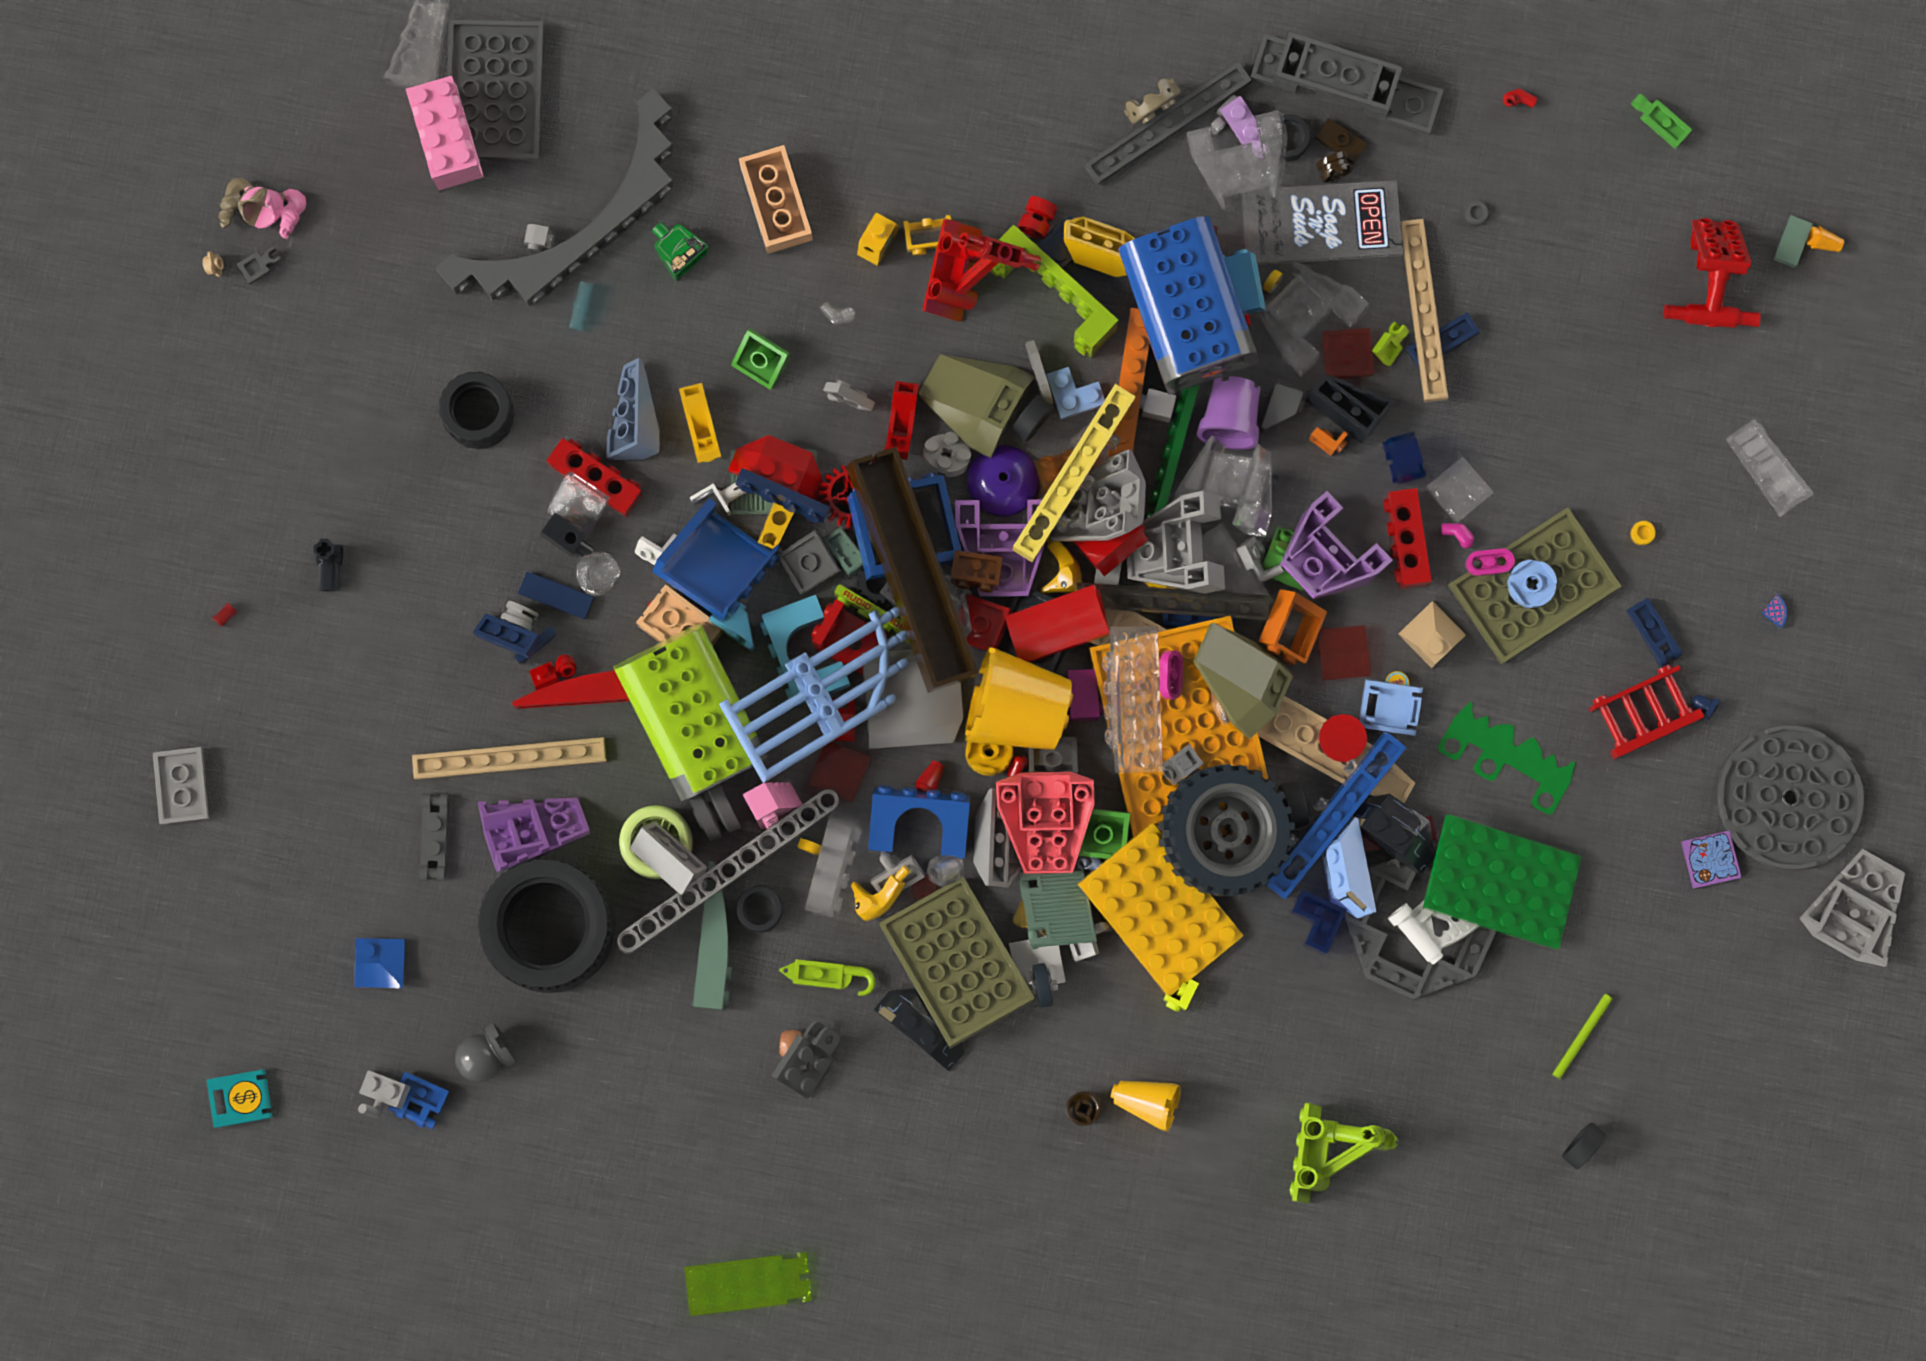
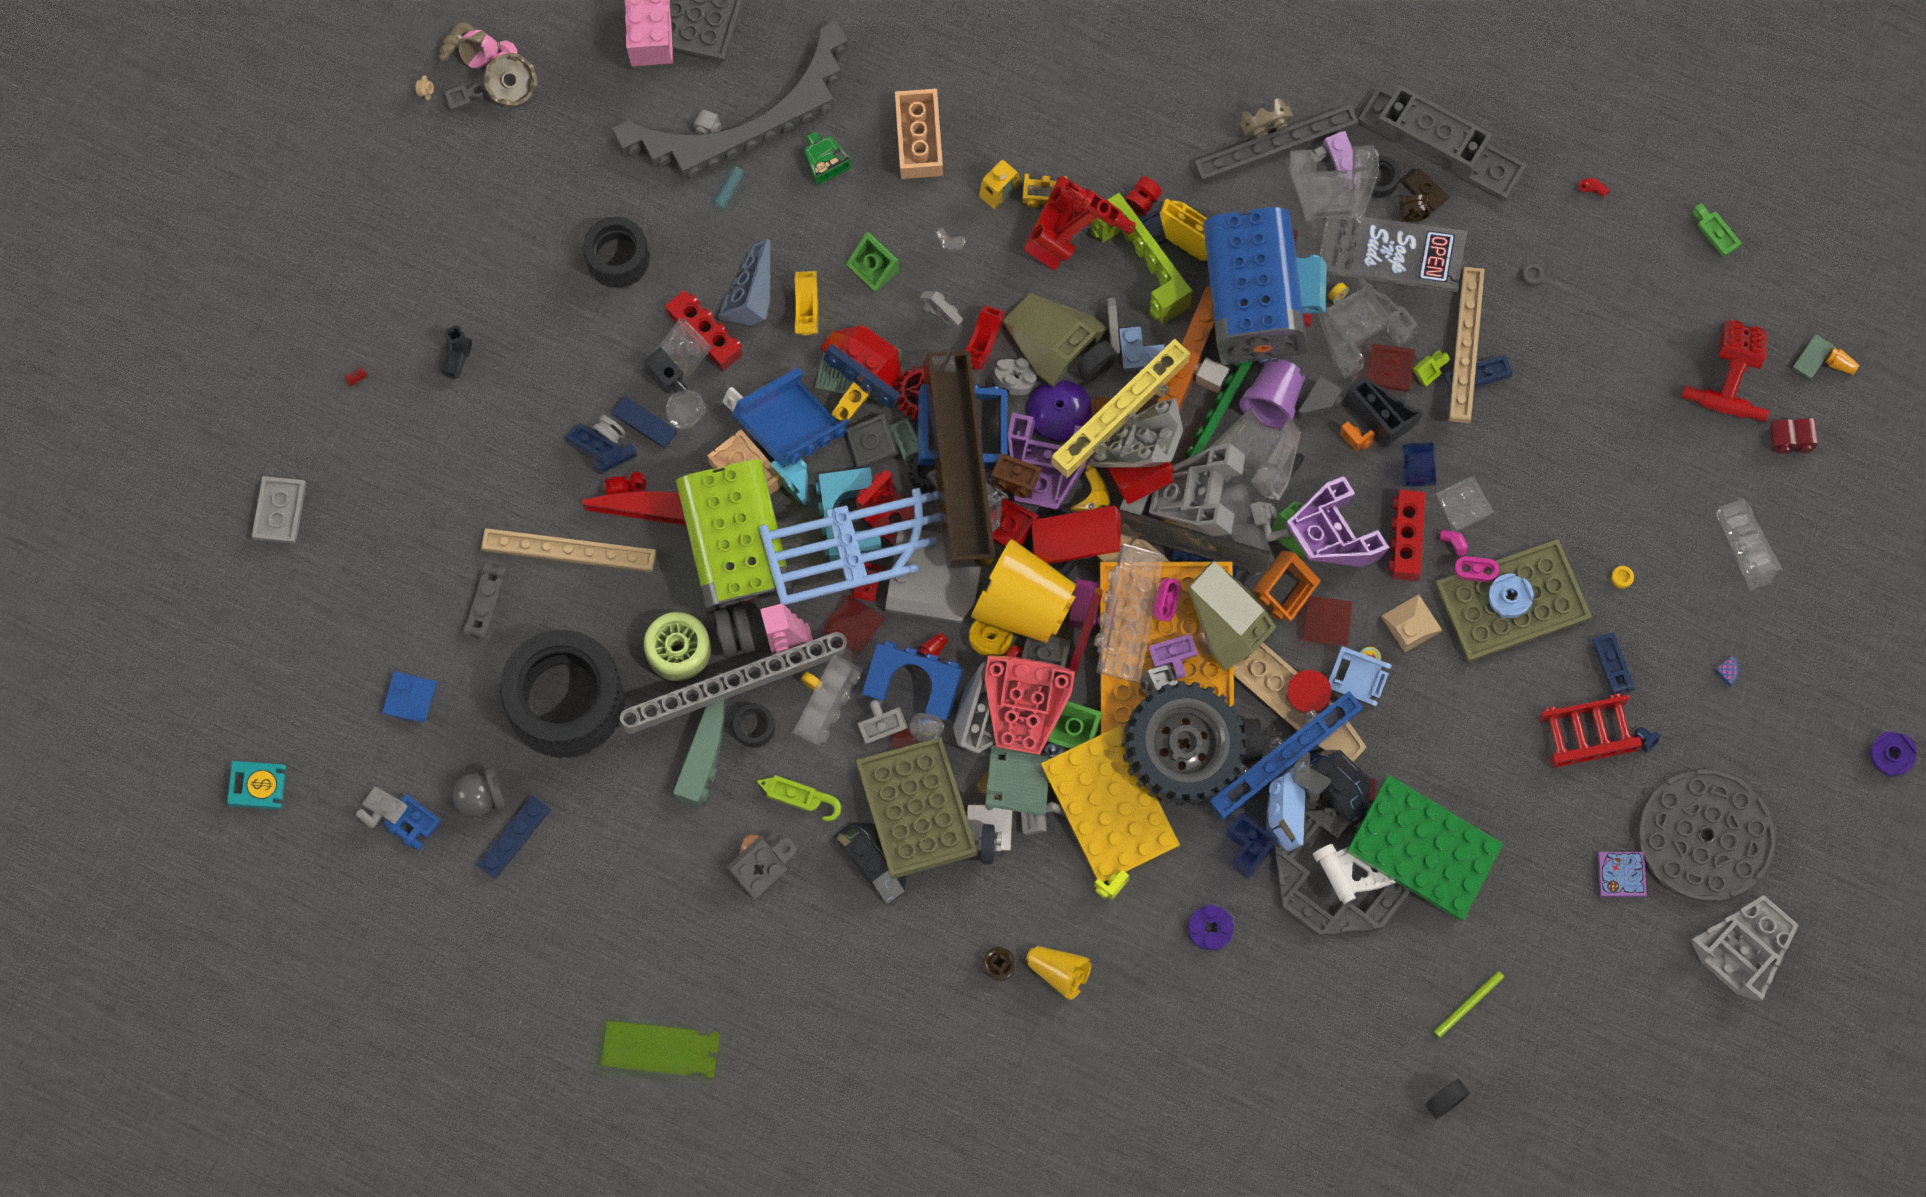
camera: 20 degrees right, 10 degrees down
(323, 235) = (524, 77): none -> dark tan plate
(530, 829) = (571, 609): medium lavender wedge -> none
(532, 1090) = (513, 837): none -> dark blue plate
(667, 857) = (682, 655): light grey panel -> none
(724, 496) = (811, 370): white bracket -> none
(865, 607) = (907, 484): lime plate -> none
(873, 906) = (856, 744): yellow animal -> none
(1091, 728) = (1086, 629): none -> dark red tile
(1190, 731) = (1173, 653): none -> medium lavender plate
(1300, 1030) = (1211, 941): none -> dark purple plate
(1315, 1147) = (1201, 1034): lime plate -> none
(1368, 838) = (1309, 778): none -> dark grey bracket
(1499, 747) = (1450, 733): green piece -> none
(1791, 335) = (1794, 435): none -> dark red brick

